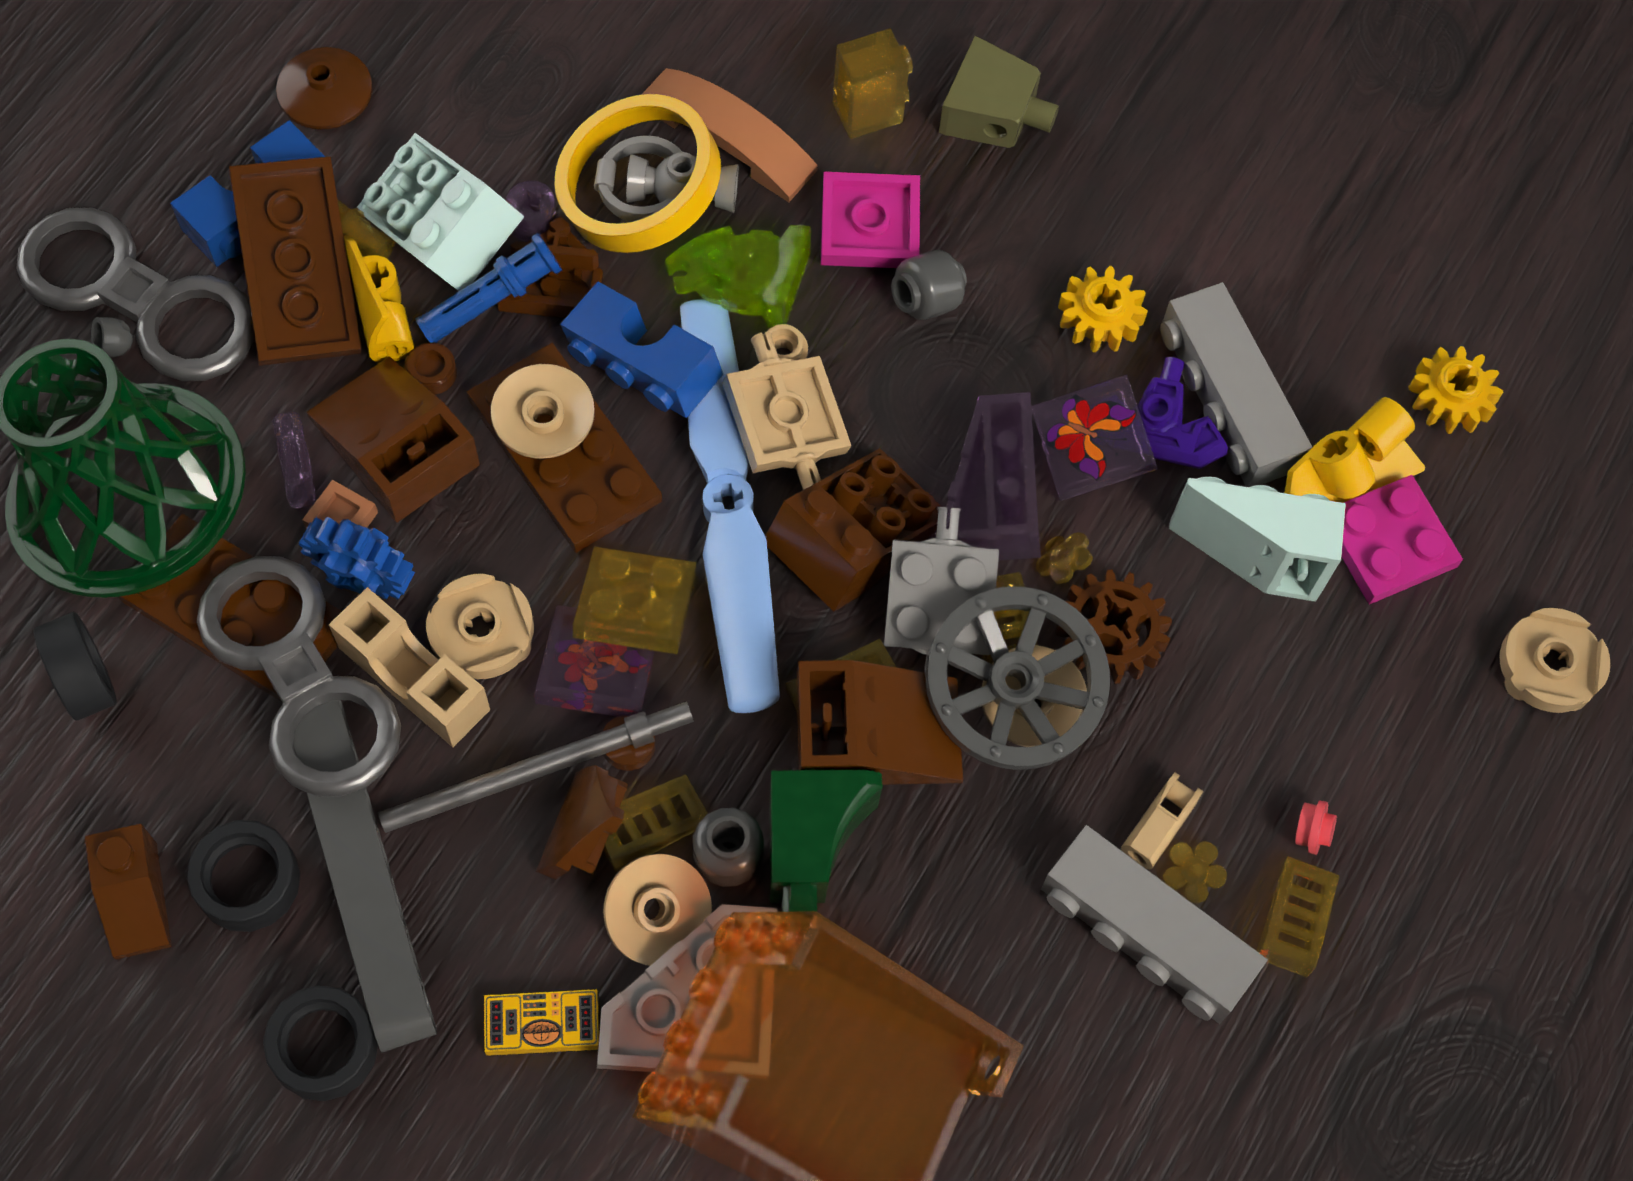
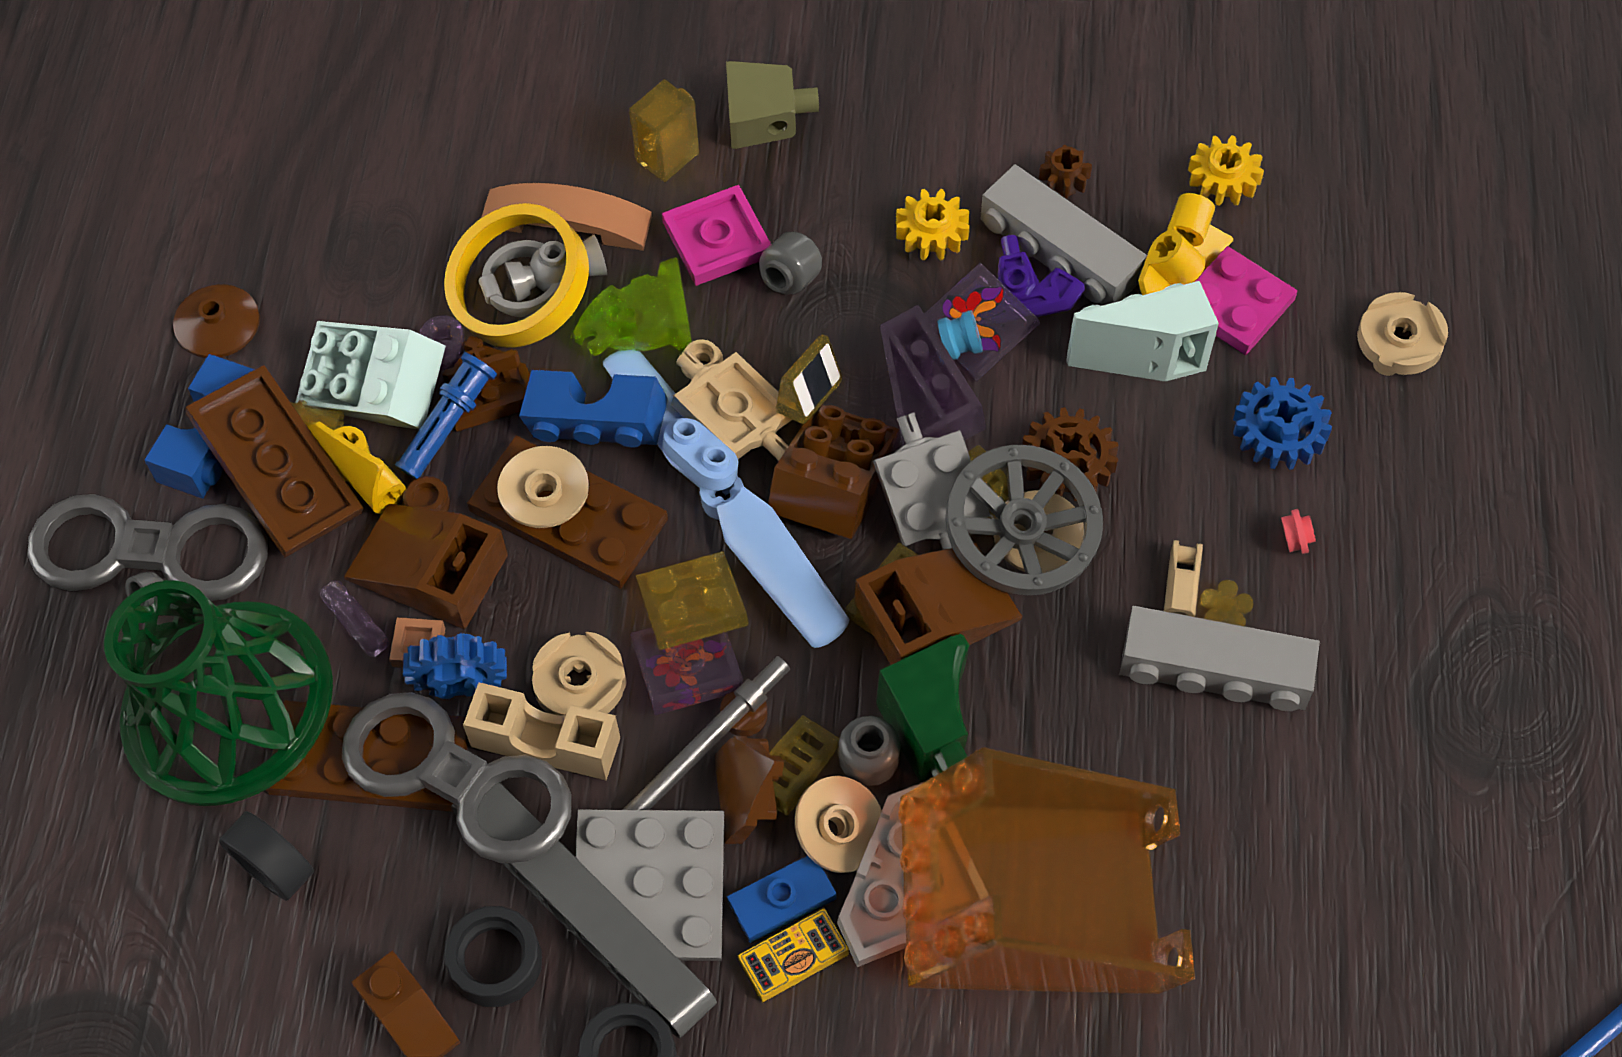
camera: 20 degrees left, 5 degrees down
(452, 873) = (663, 871): none -> light grey plate
(560, 957) = (781, 898): none -> blue plate
(722, 444) = (694, 449): none -> light blue plate
(878, 422) = (809, 381): none -> slope
(1061, 444) = (960, 335): none -> dark azure wheel
(1065, 557) = (1003, 420): clear yellow plant -> none
(1277, 313) = (1065, 171): none -> reddish brown gear
(1284, 954) = (1329, 634): clear yellow slope -> none
(1386, 699) = (1279, 425): none -> blue gear

